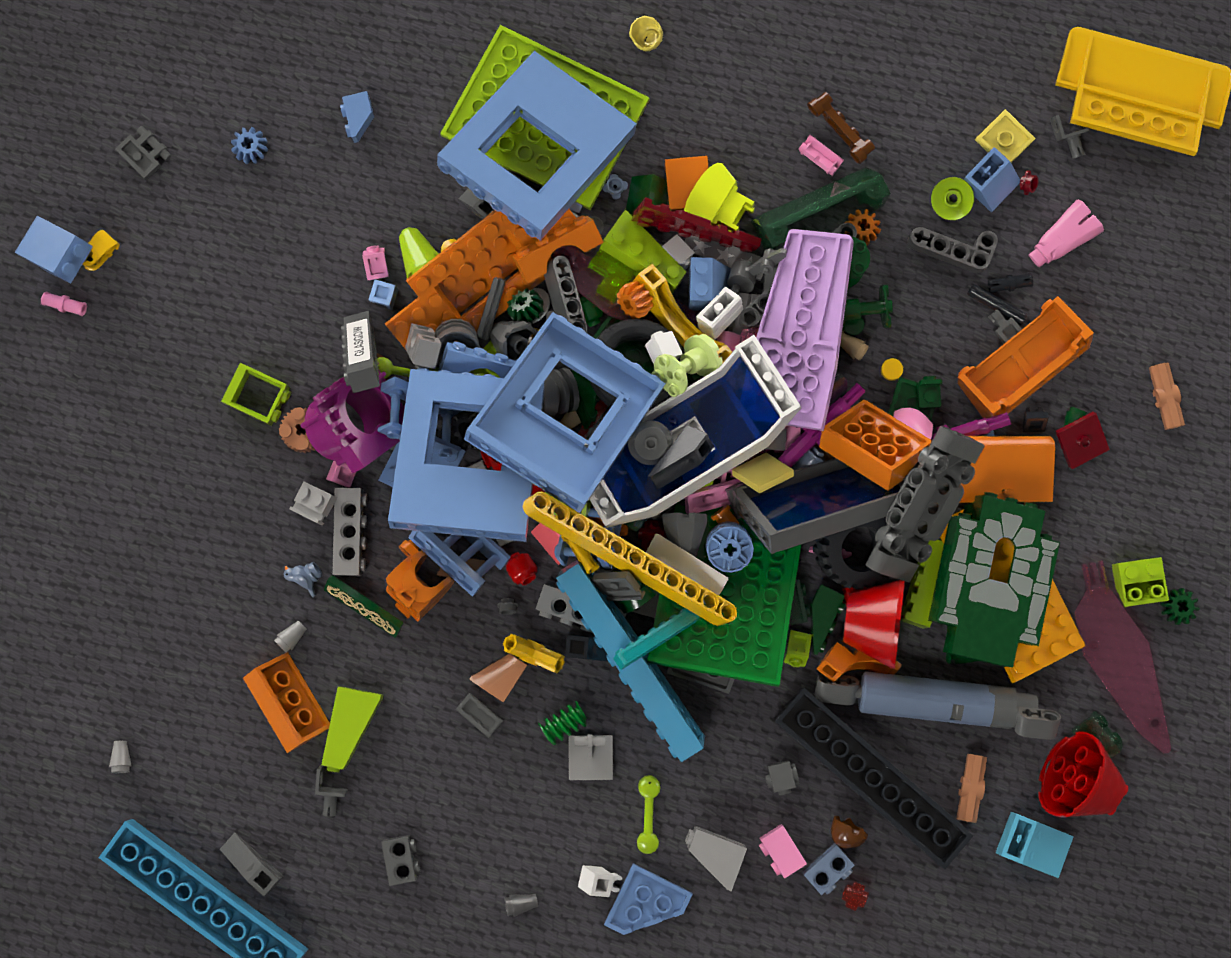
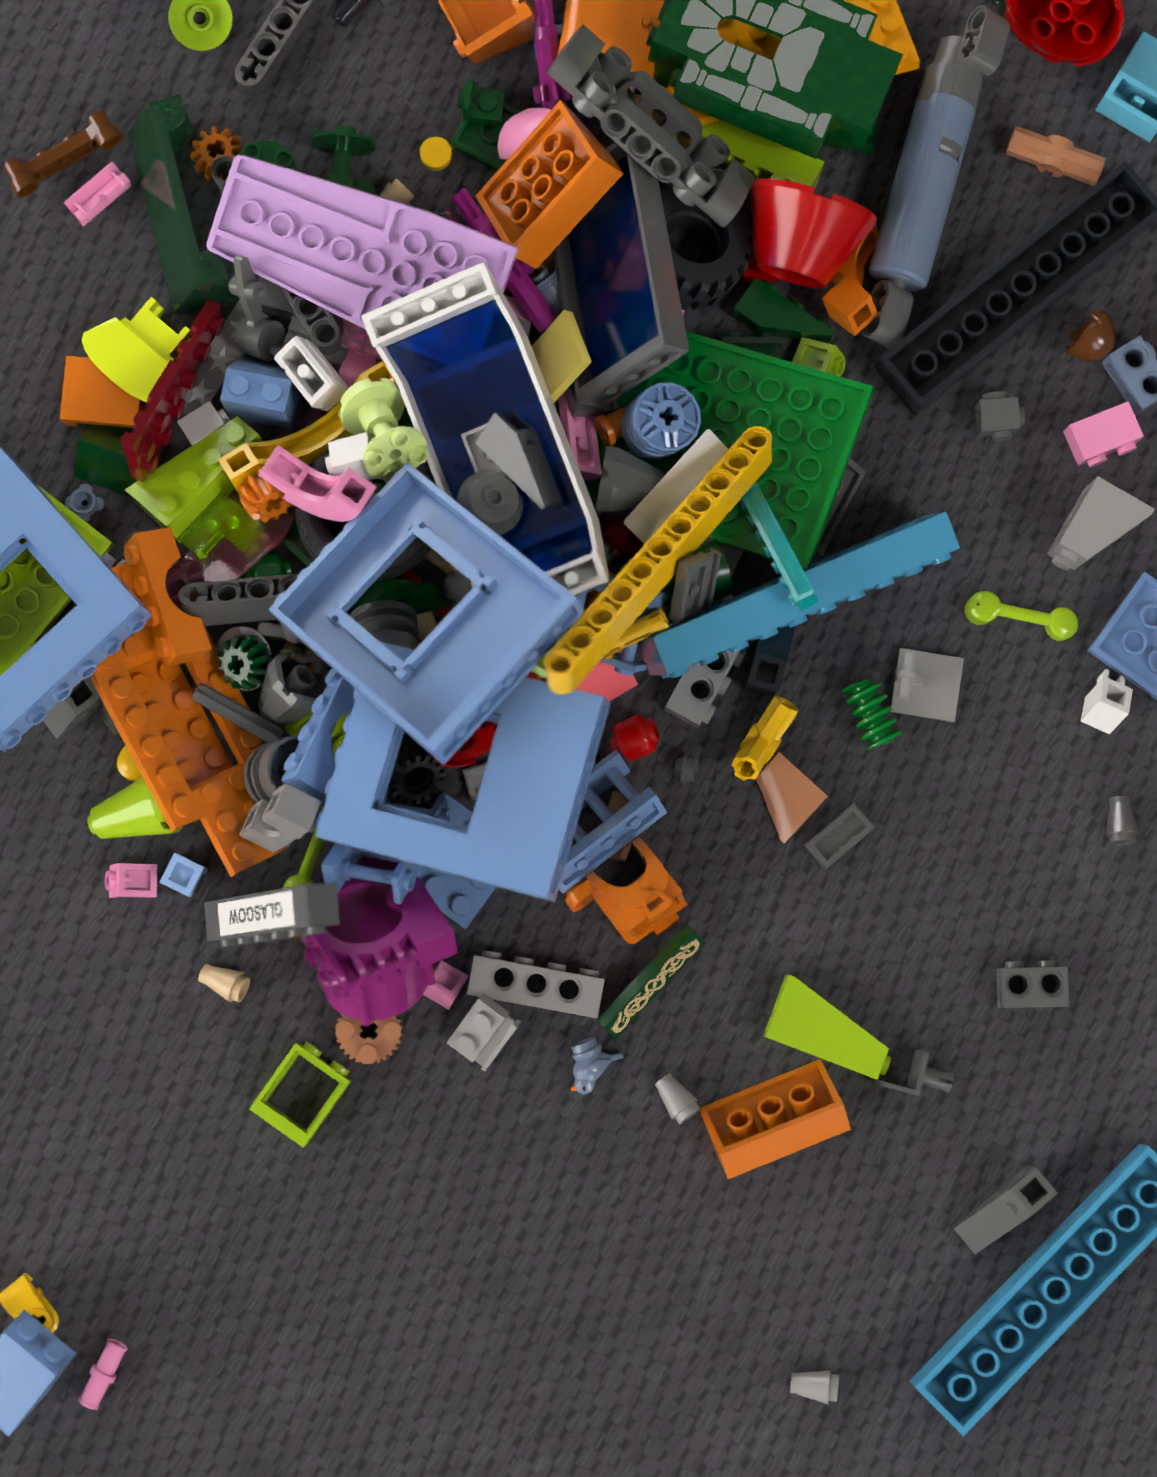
camera: 90 degrees left, 0 degrees up
(320, 333) = (226, 982): none -> tan cone
(636, 336) = (315, 492): none -> bright pink arch

